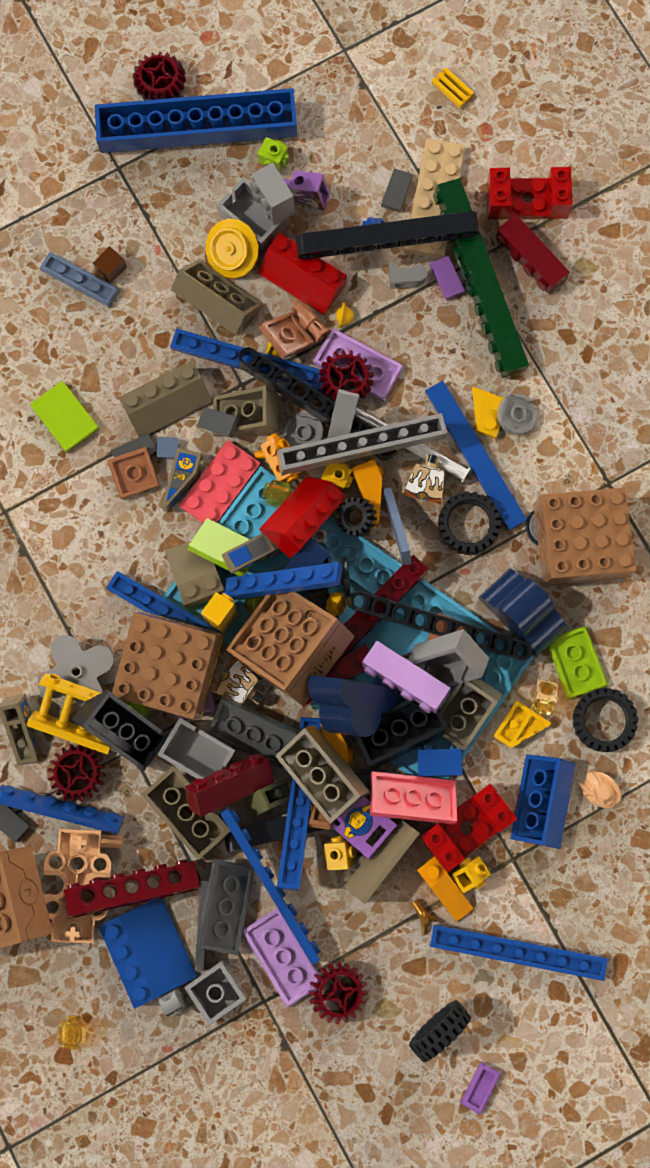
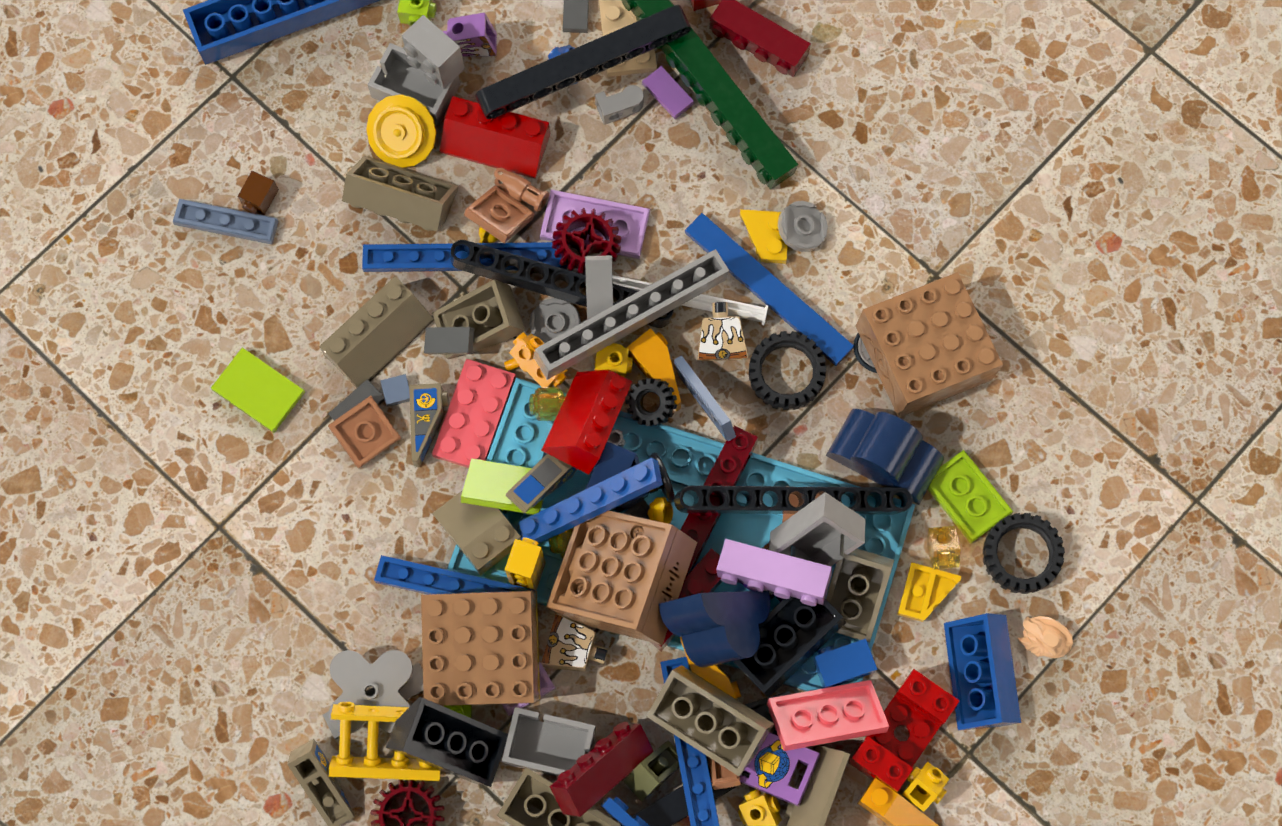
camera: 20 degrees left, 5 degrees down
(250, 730) = (606, 697): dark grey tile -> none
(344, 315) = (560, 171): yellow piece -> none

